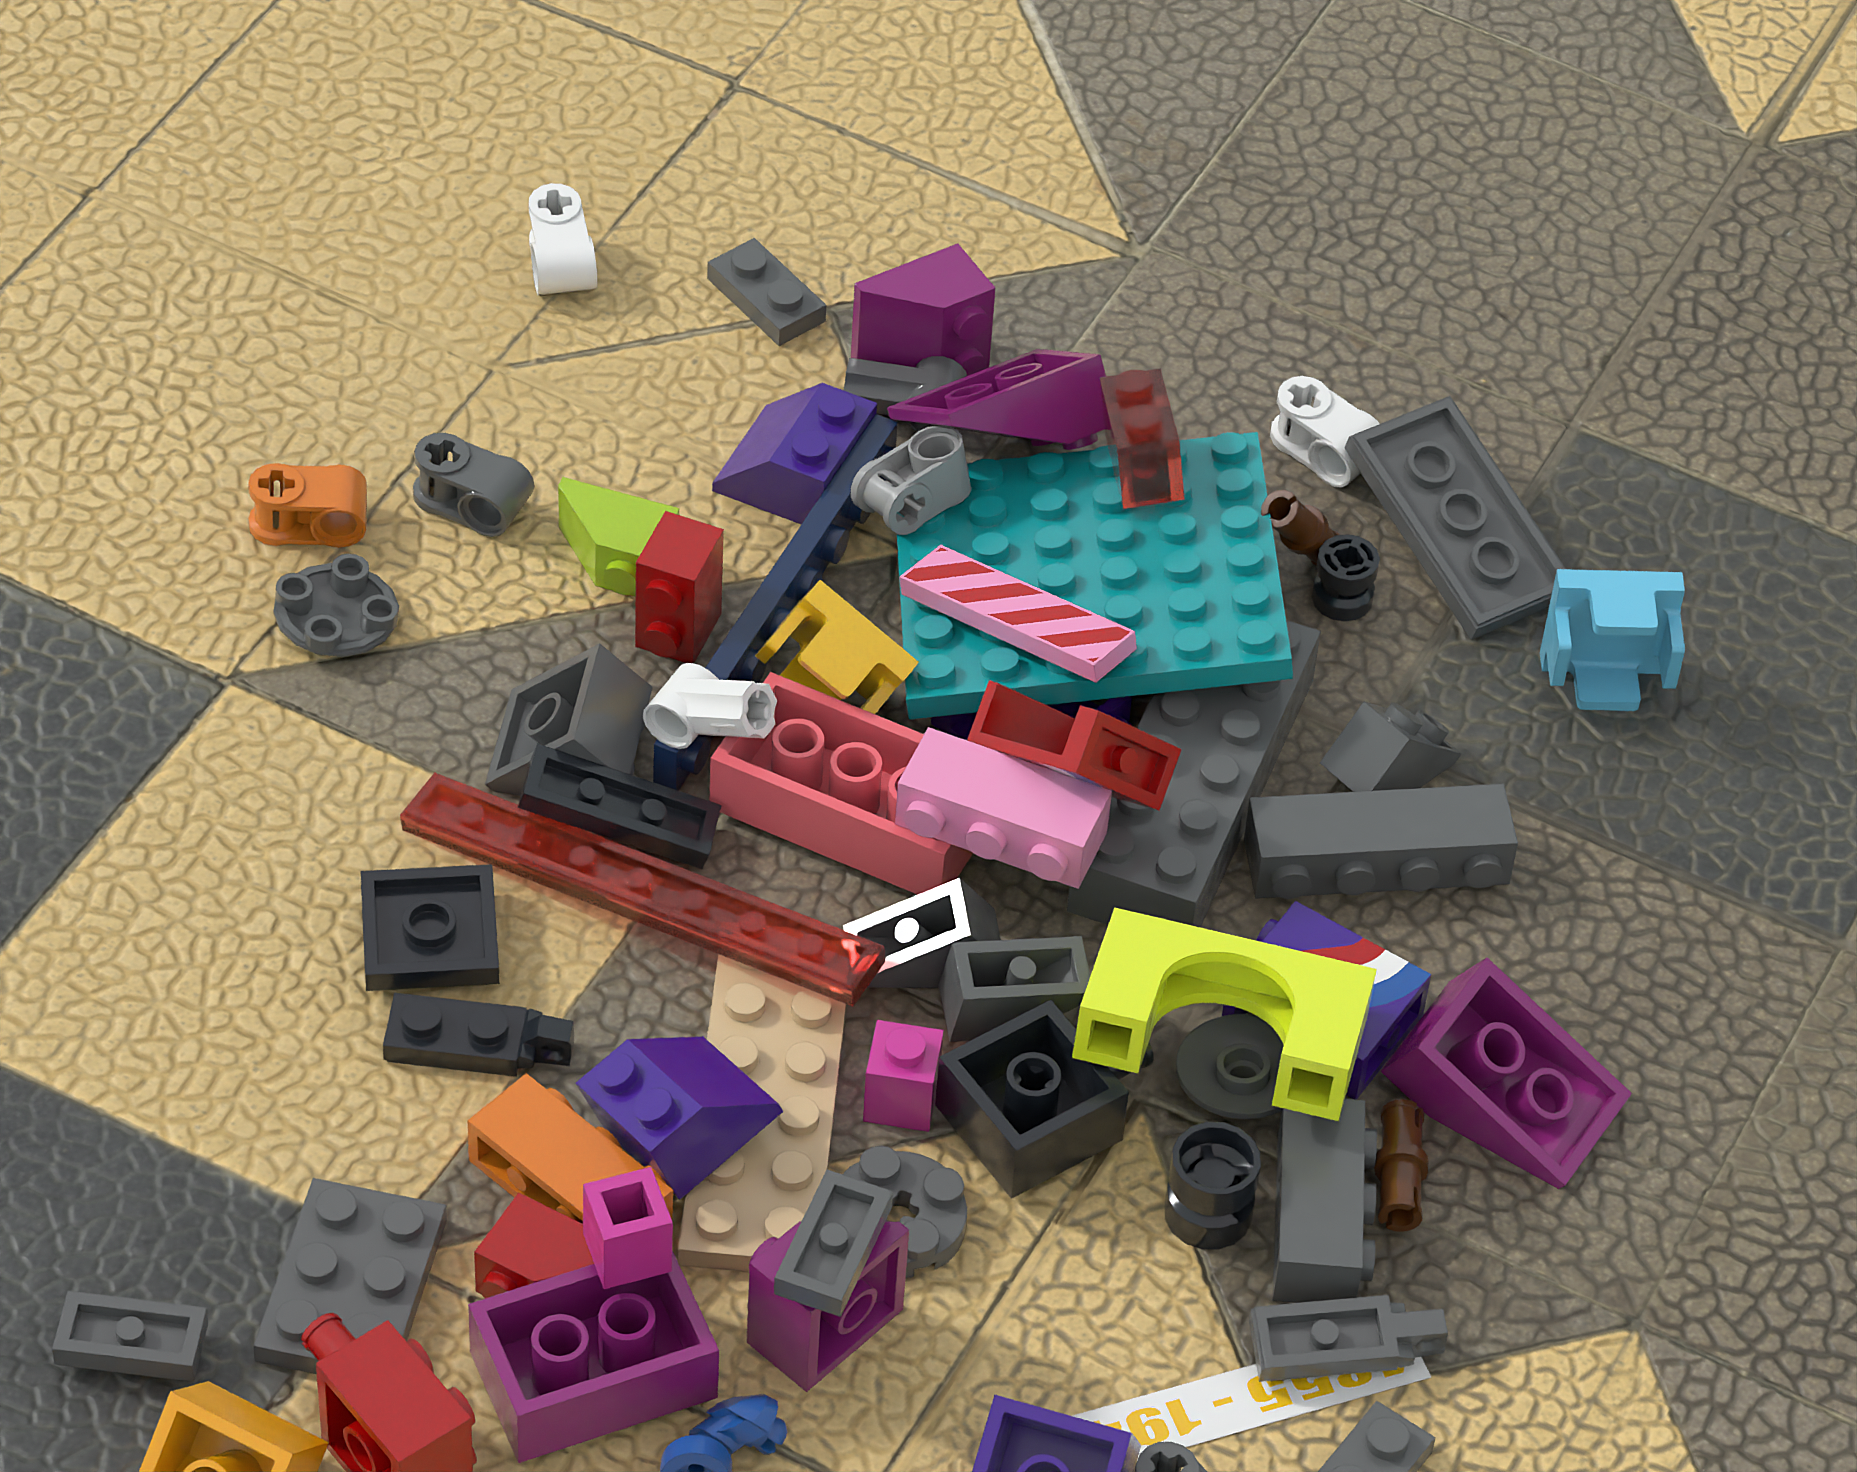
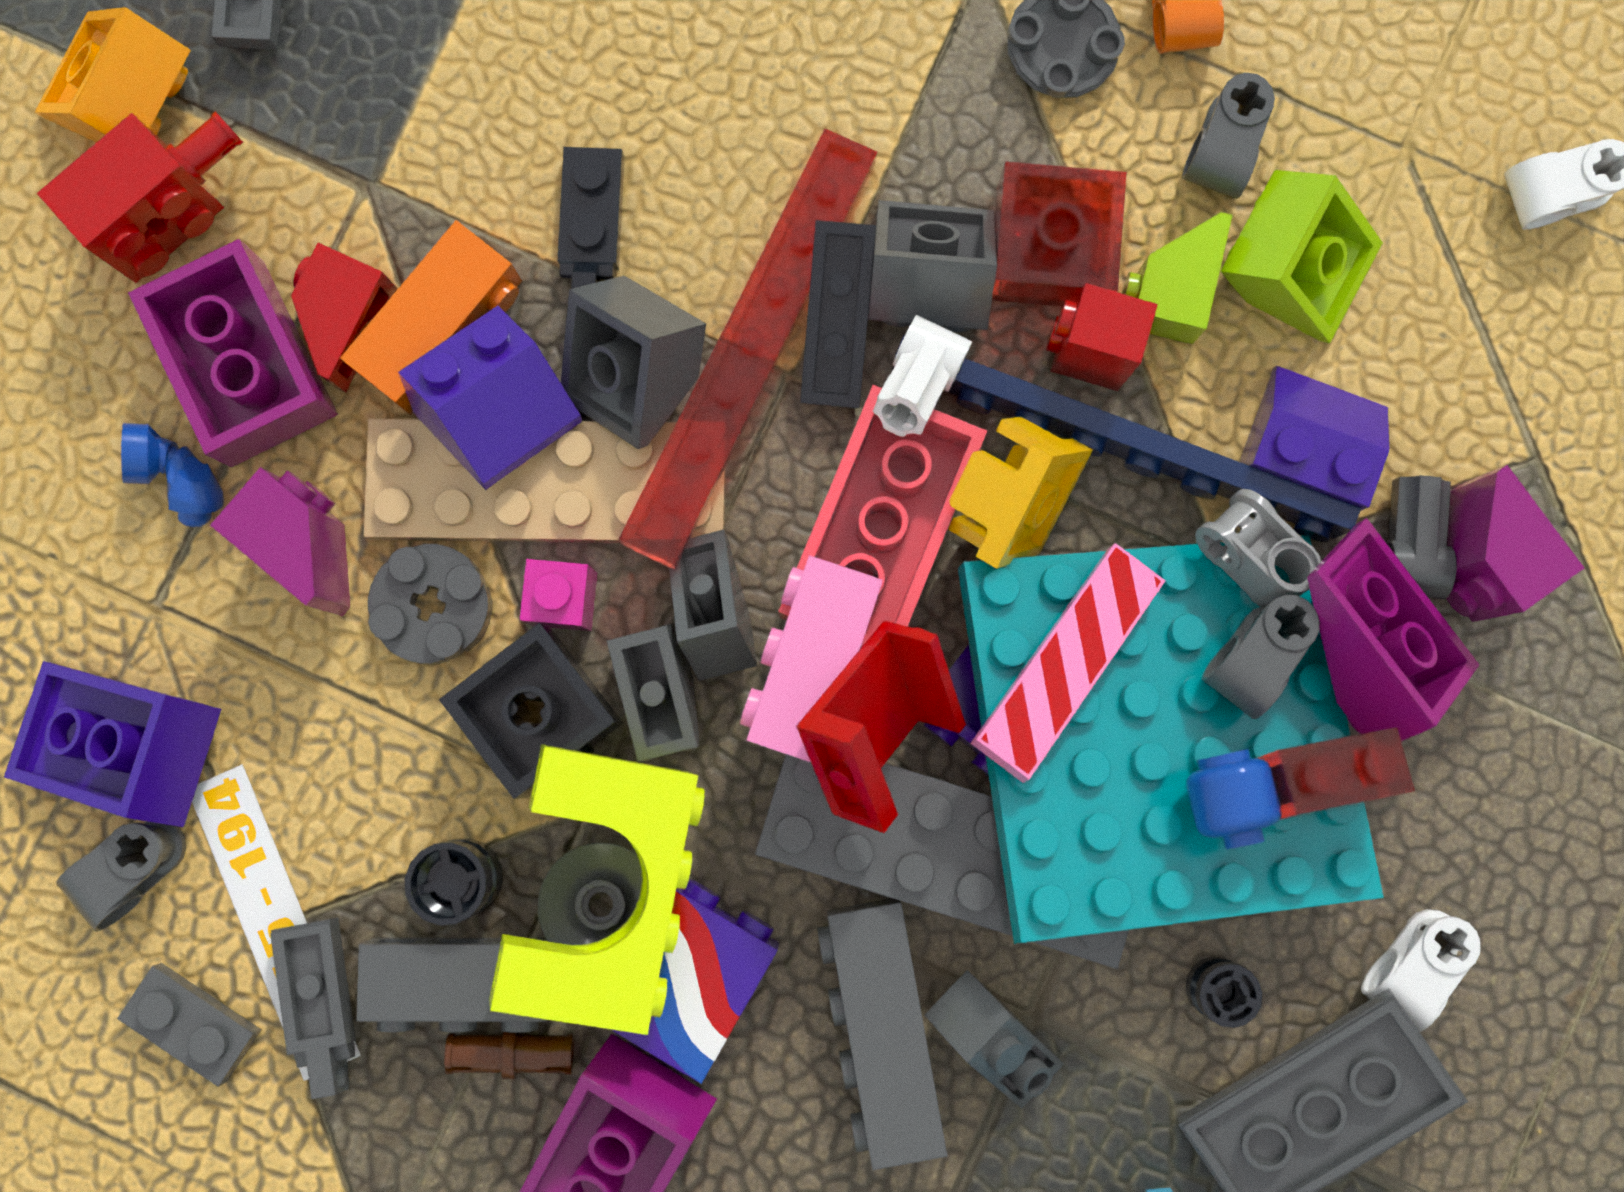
camera: 90 degrees right, 35 degrees up
(351, 1257) = (325, 156): dark grey plate -> none
(429, 927) = (697, 169): black plate -> none
(555, 607) = (1056, 232): none -> clear red brick
(598, 442) = (1303, 252): none -> lime slope
(627, 1227) = (275, 354): dark pink brick -> none
(648, 974) = (629, 357): none -> dark grey slope
(766, 291) = (1544, 393): dark grey plate -> none
(833, 1242) = (259, 535): dark grey plate -> none
(1019, 479) = (1263, 654): none -> dark grey piece
(1159, 496) = (1233, 798): none -> blue head
(1299, 525) = (1263, 947): reddish brown pin -> none

